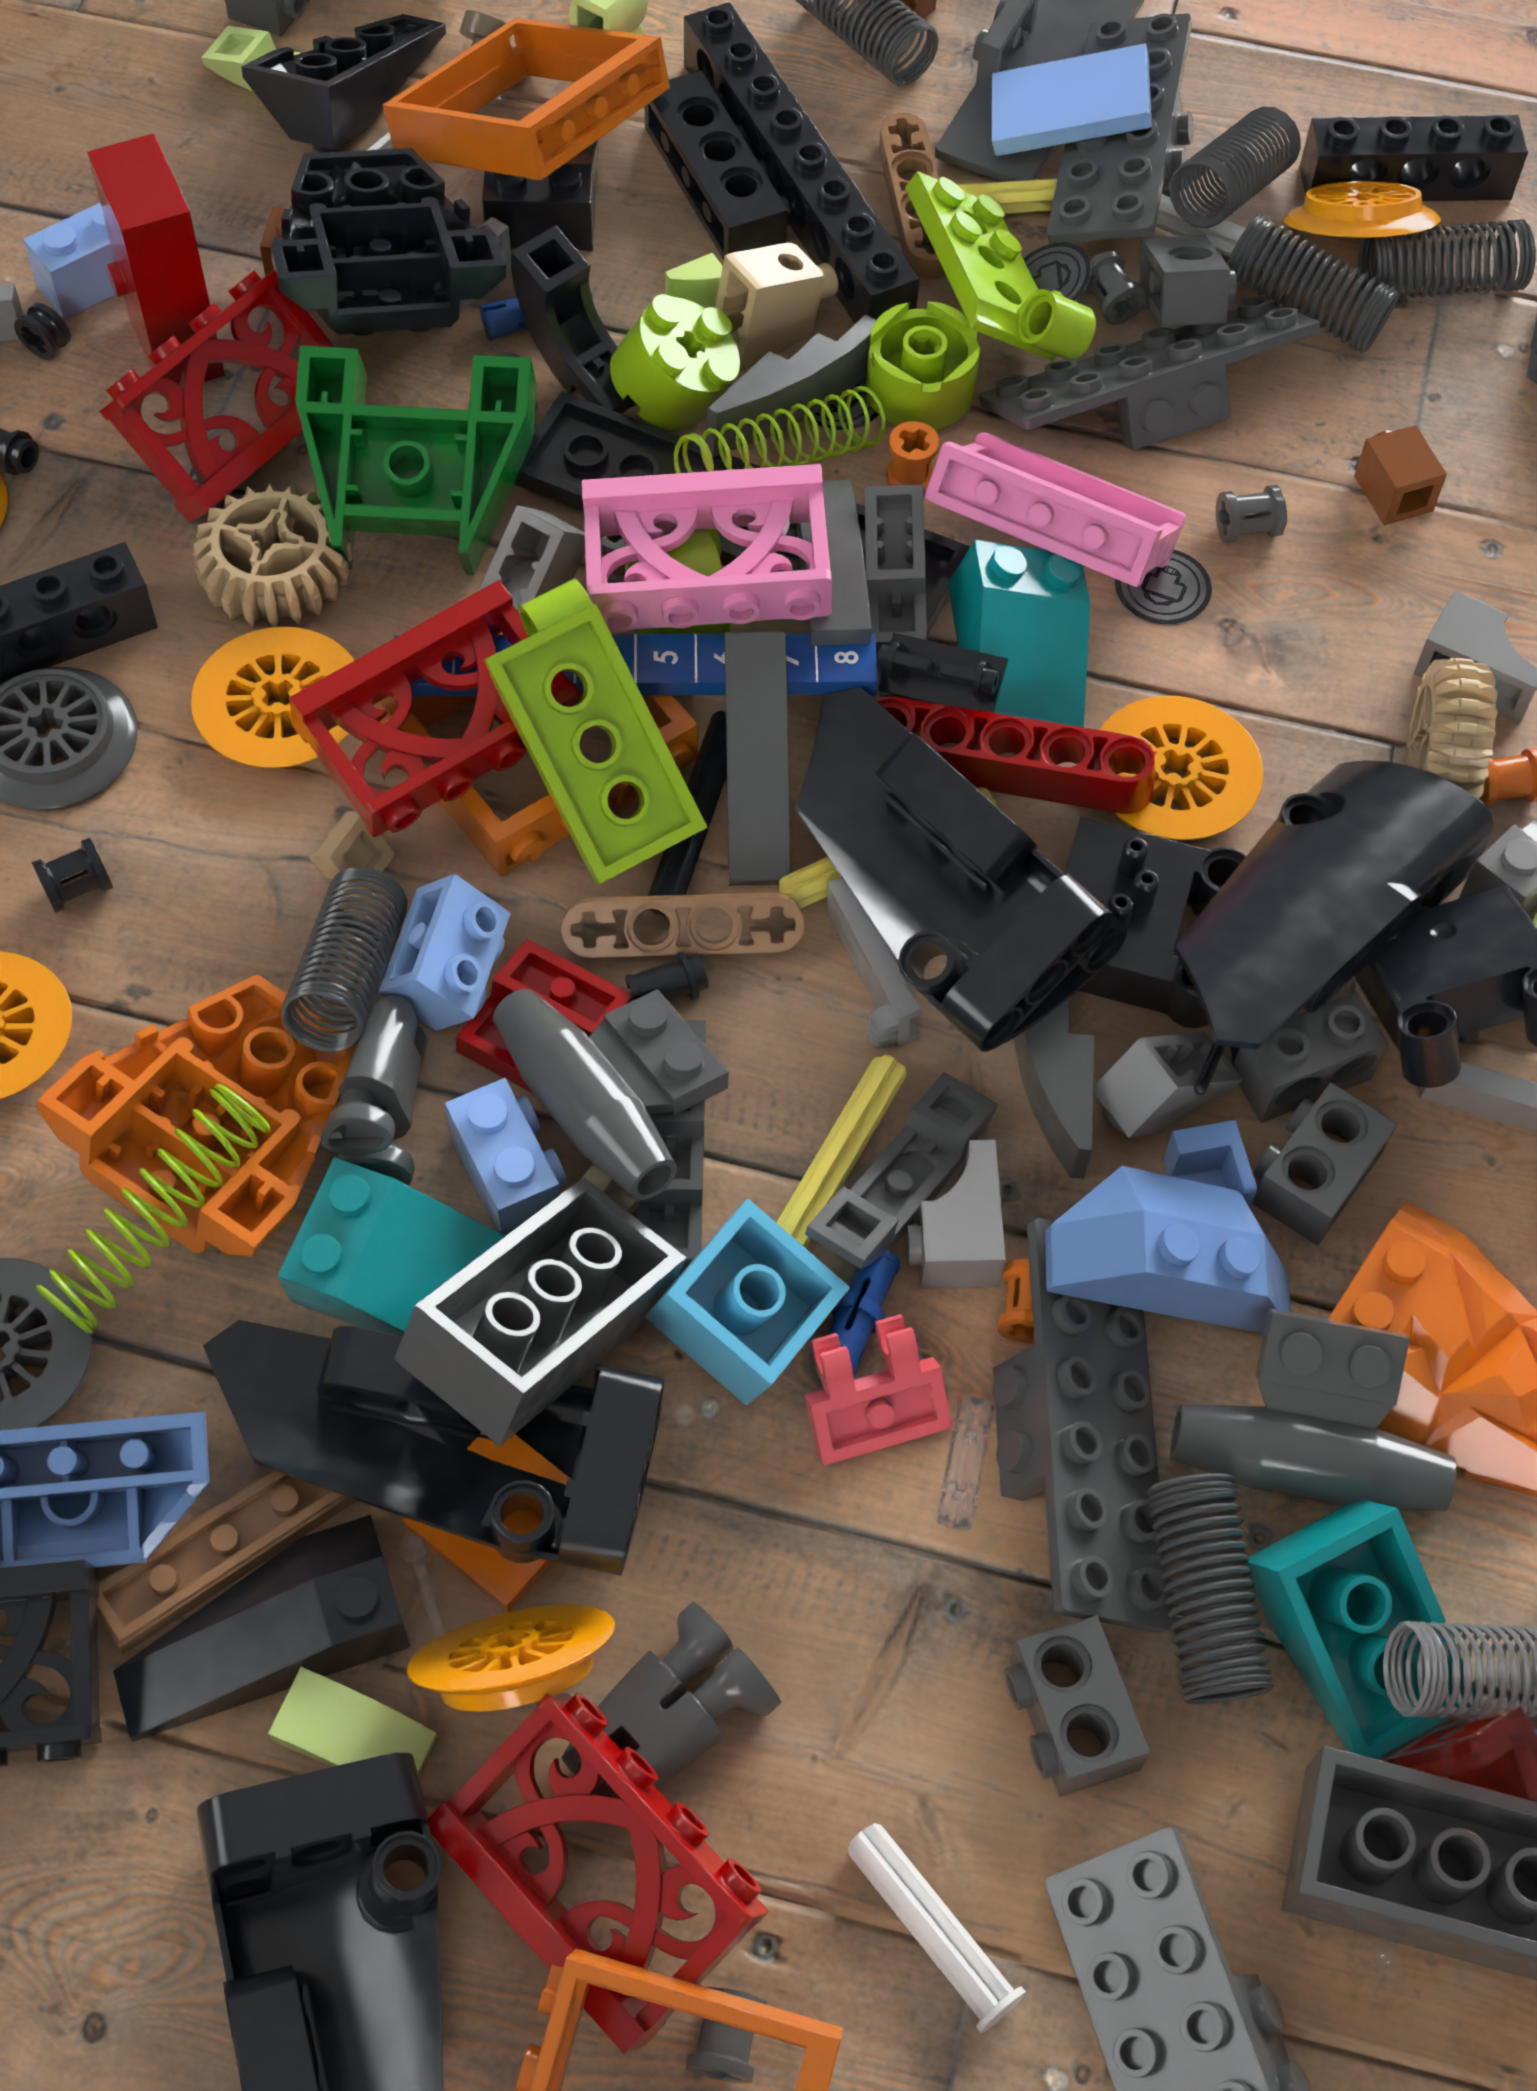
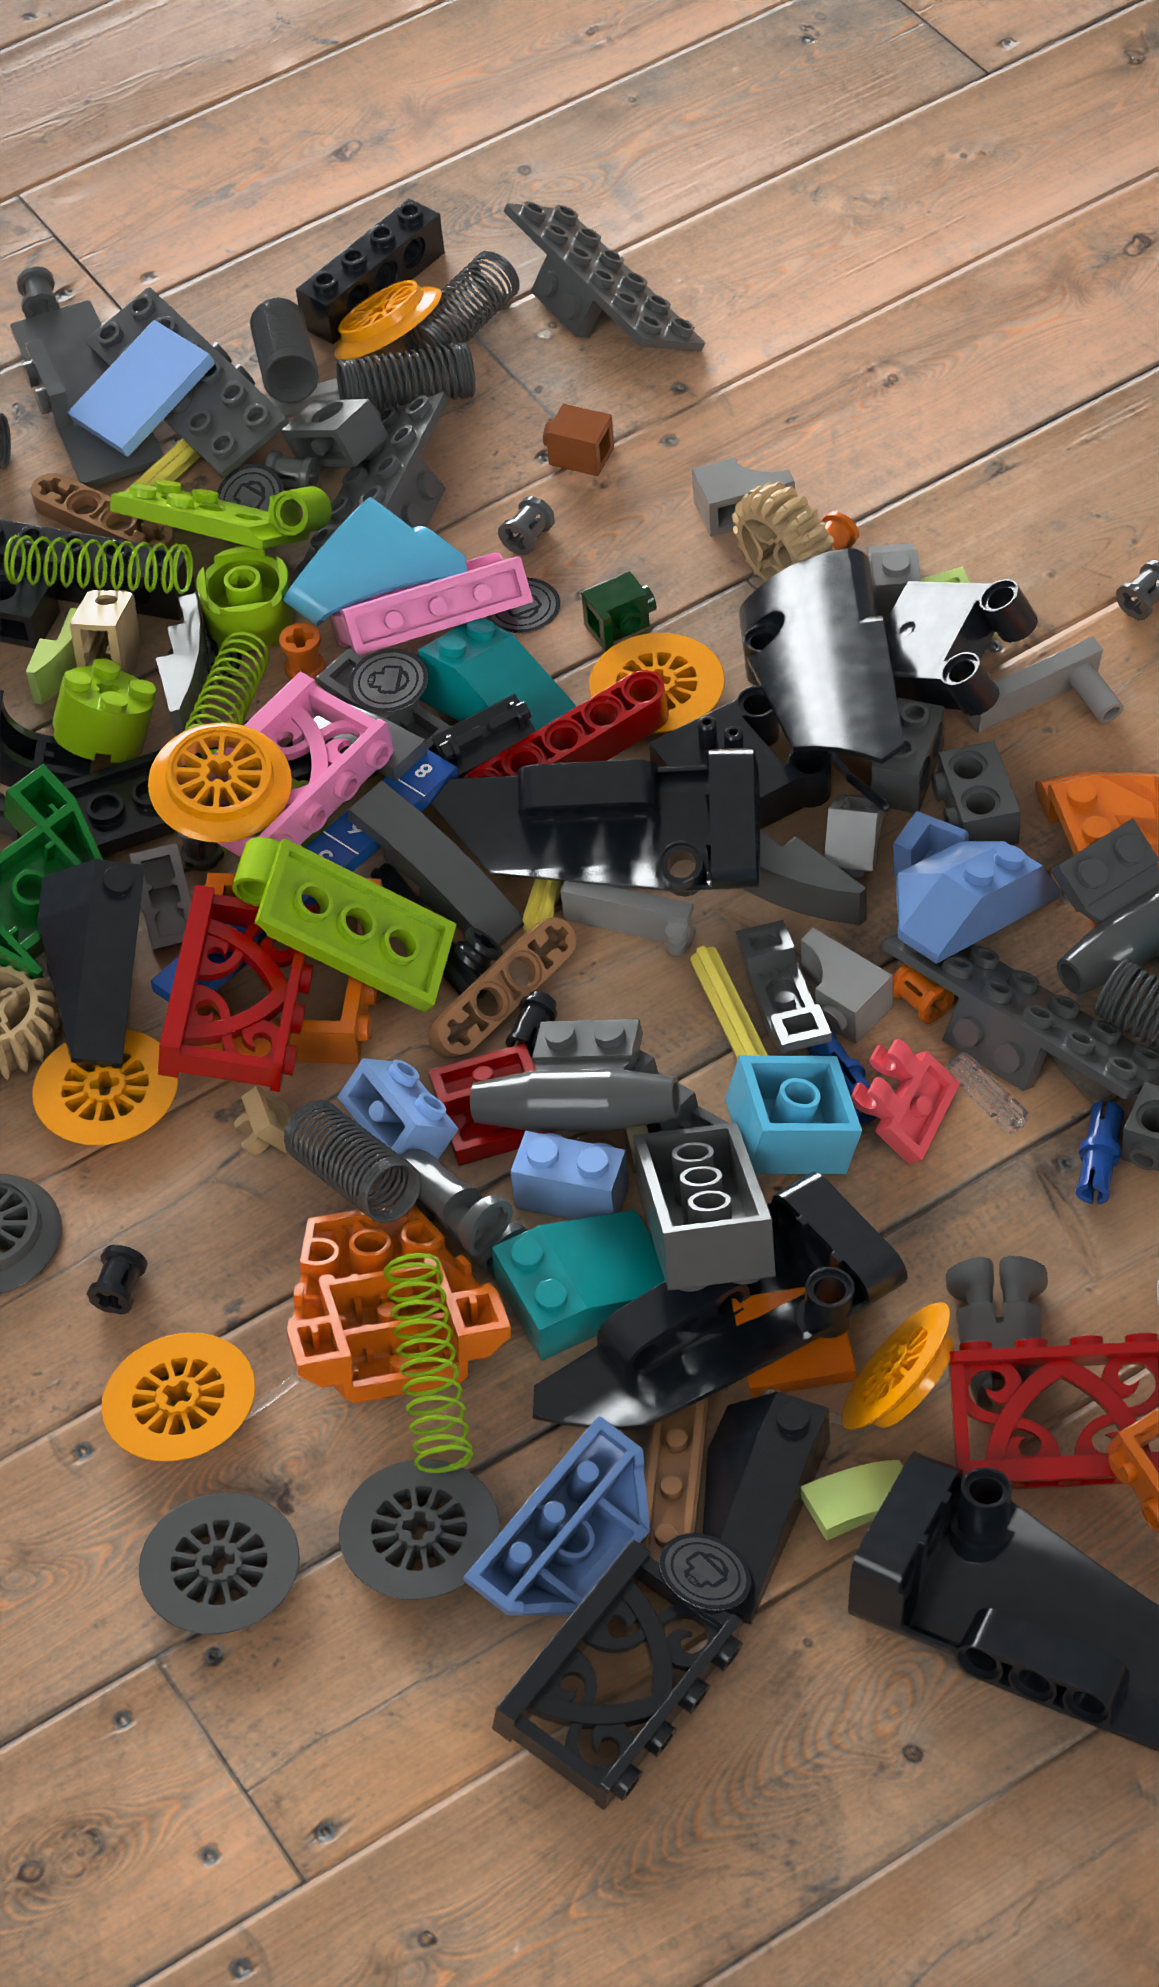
camera: 40 degrees left, 10 degrees down
(123, 1656) = (705, 1571): none -> sticker
(391, 562) = (90, 944): none -> black wedge
(641, 557) = (219, 823): none -> light orange piece
(718, 864) = (477, 950): none -> black bush
(887, 262) = (173, 563): none -> lime piece
(916, 545) = (388, 680): none -> sticker
(987, 1635) = (1099, 1152): none -> blue pin
(1051, 418) = (367, 558): none -> medium azure panel
(1229, 664) = (617, 609): none -> dark green brick

